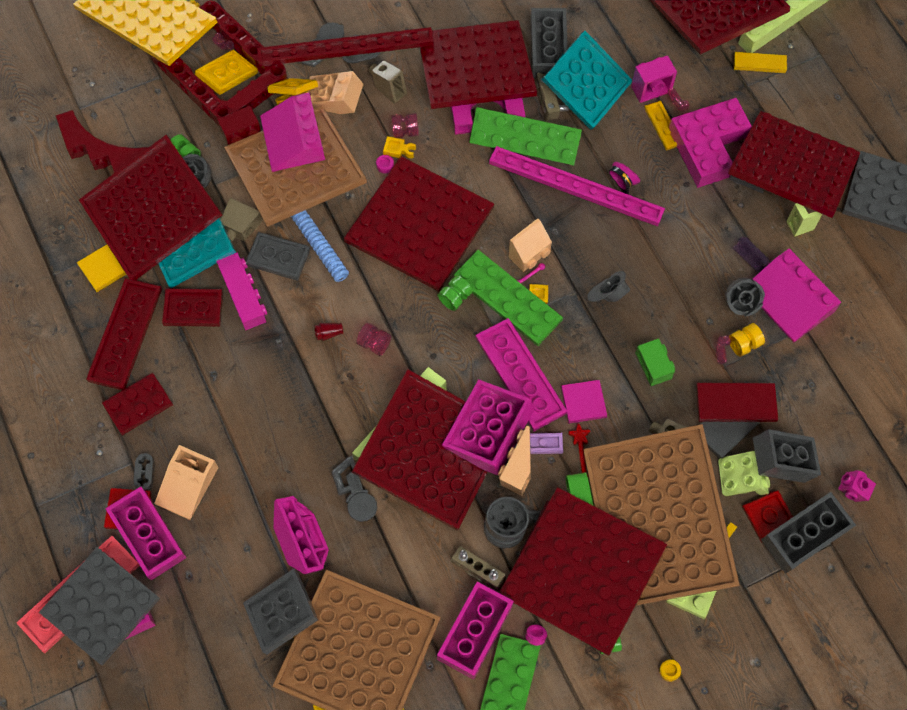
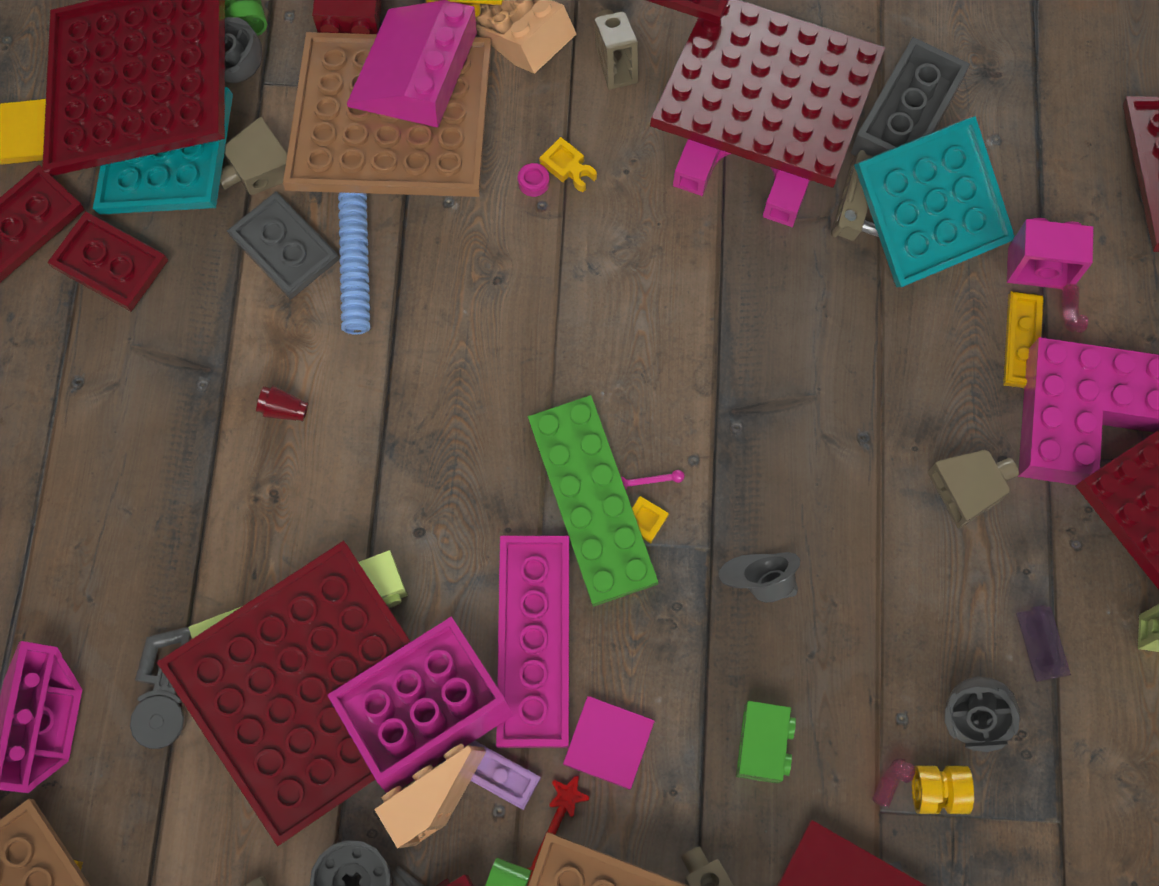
camera: 30 degrees right, 5 degrees up
(241, 291) = (192, 273): dark pink brick -> none
(372, 338) = (336, 453): clear pink wheel -> none
(411, 125) = (608, 137): clear pink wheel -> none
(419, 223) = (529, 304): dark red plate -> none
(457, 291) = (510, 448): bright green wheel -> none
(525, 136) = (780, 246): bright green plate -> none
(530, 246) = (674, 434): light nougat slope -> none
(577, 186) = (817, 374): dark pink plate -> none
(623, 176) = (900, 396): piece -> none
(679, 200) = (972, 484): none -> dark tan torso
(795, 295) = (1073, 756): dark pink slope -> none

